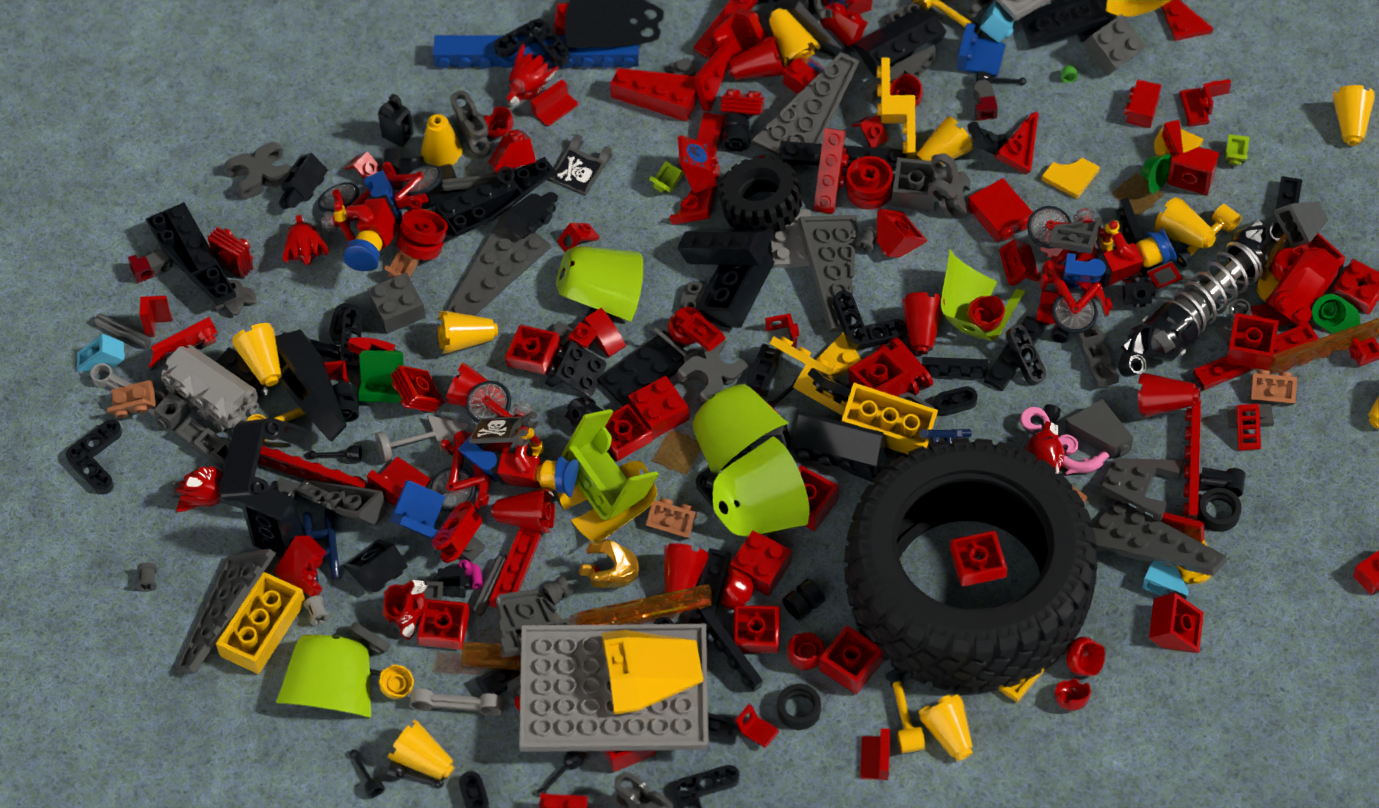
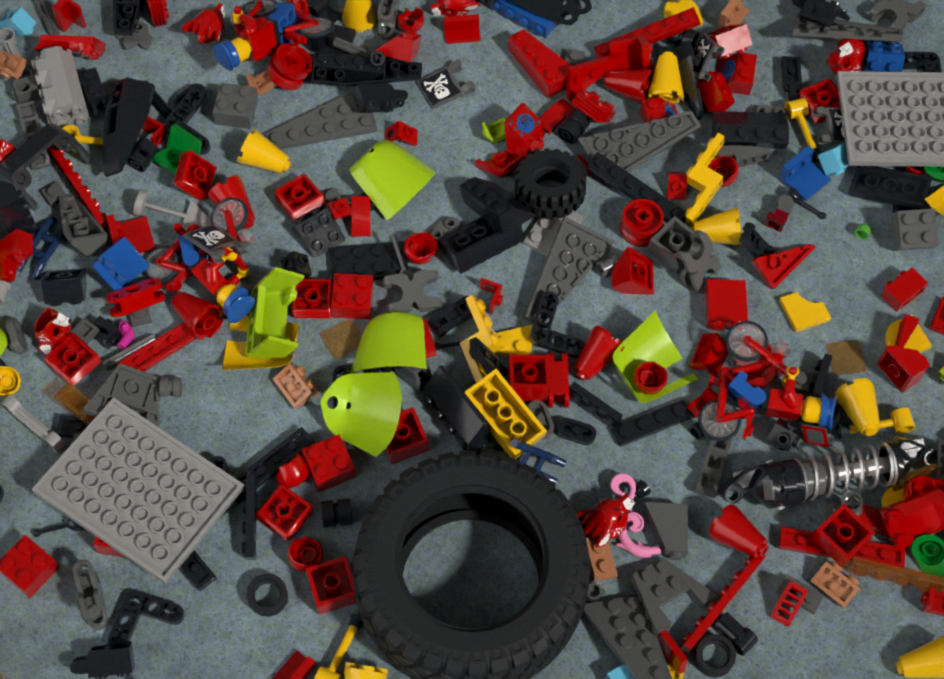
camera: 30 degrees right, 5 degrees up
(259, 352) = (105, 82): yellow cone -> none
(352, 453) = (119, 195): black hinge -> none
(362, 343) = (187, 124): red slope -> none
(624, 570) = (227, 398): pearl gold piece -> none
(648, 607) = (215, 442): clear orange plate -> none
(648, 668) = (168, 490): yellow wedge -> none
(682, 566) = (264, 433): red cone -> none
(700, 329) = (421, 256): red hinge -> none
(755, 727) = (222, 589): red bracket -> none
(831, 169) = (617, 196): red bracket -> none
(987, 548) = (454, 563): red brick -> none
(1029, 346) = (654, 414): black beam -> none
(1076, 236) = (759, 361): dark grey wing -> none
(1156, 171) = (871, 349): green piece -> none

